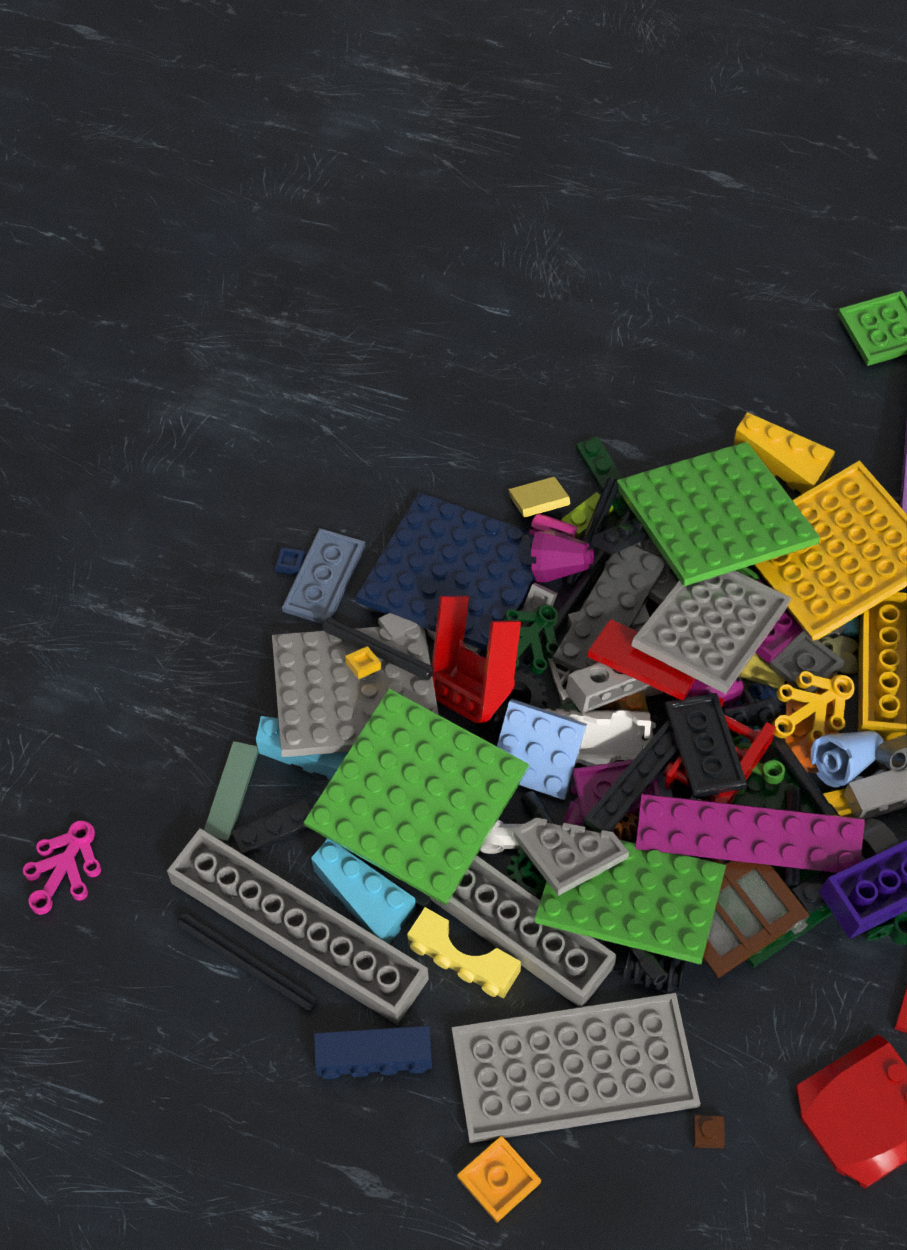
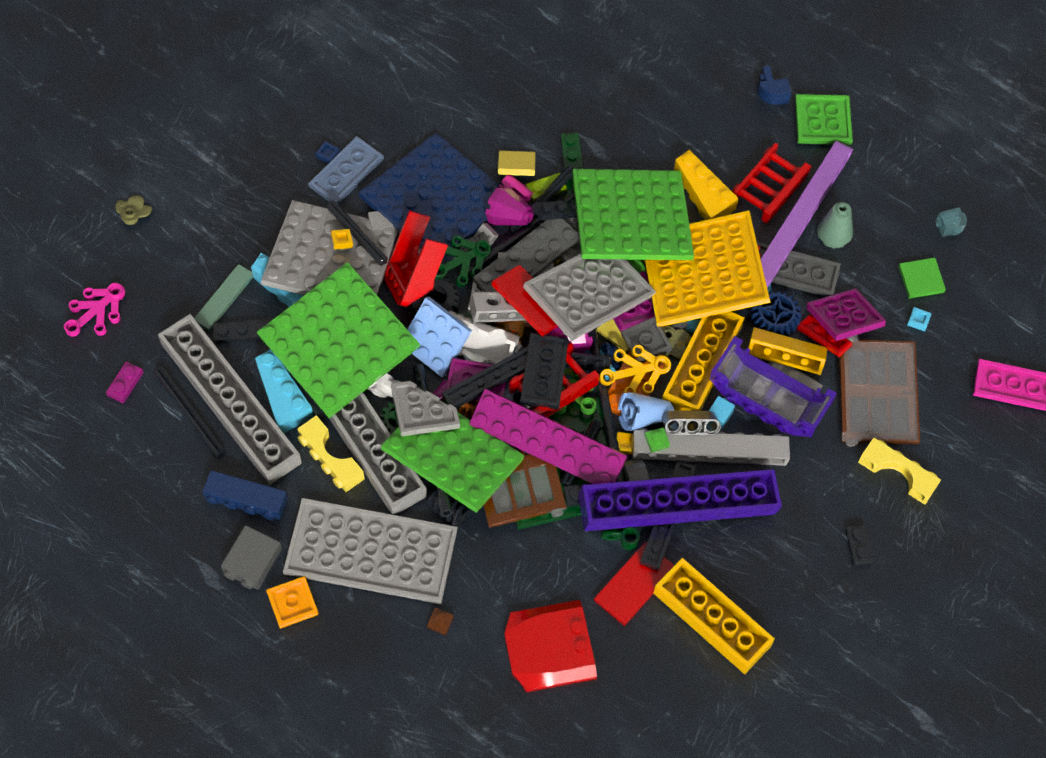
camera: 15 degrees right, 5 degrees up
(61, 716) = (132, 209): none -> olive plate
(141, 952) = (124, 382): none -> magenta plate
(417, 1137) = (251, 558): none -> dark grey brick
(807, 313) = (772, 90): none -> dark blue brick
(877, 436) = (778, 198): none -> red fence
(885, 785) = (657, 440): none -> bright green plate

